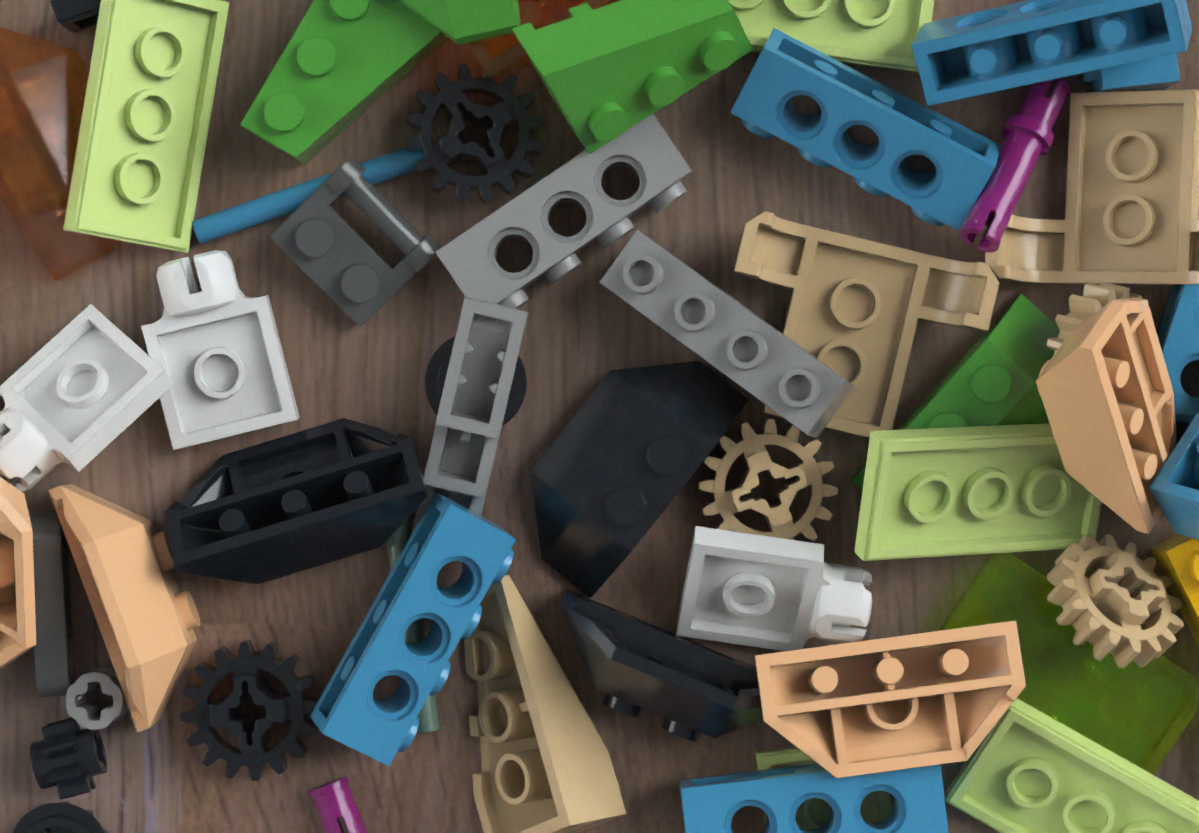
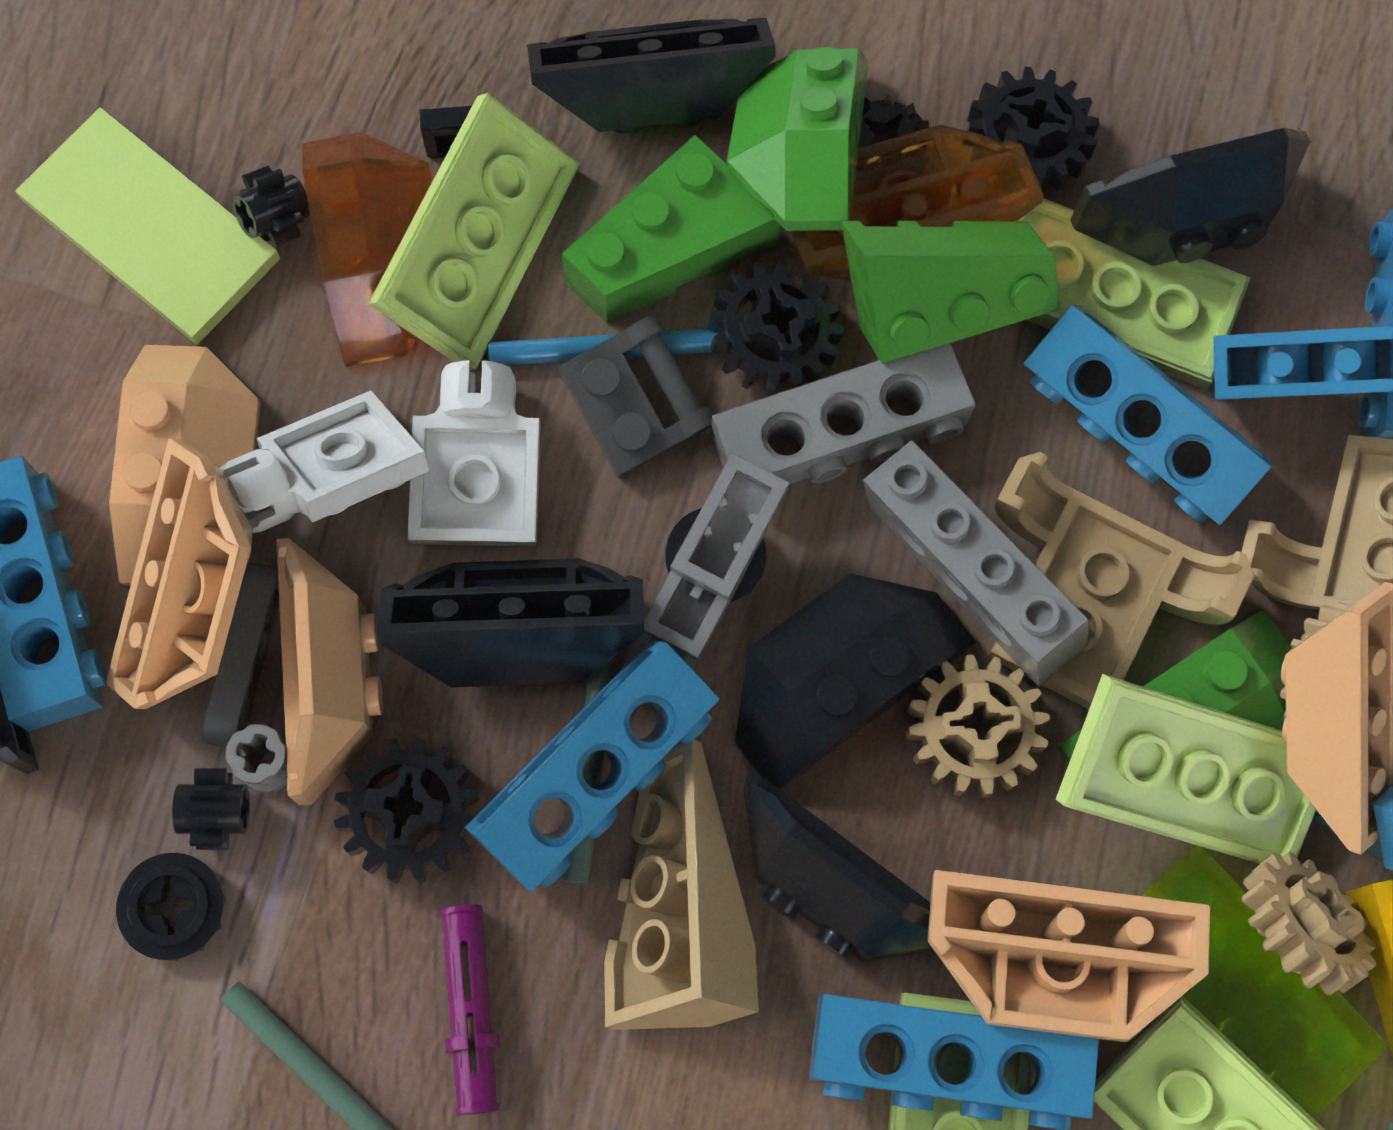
camera: 10 degrees right, 15 degrees down
(769, 592) = (955, 818): white plate -> none
(1025, 139) = (1297, 462): magenta pin -> none

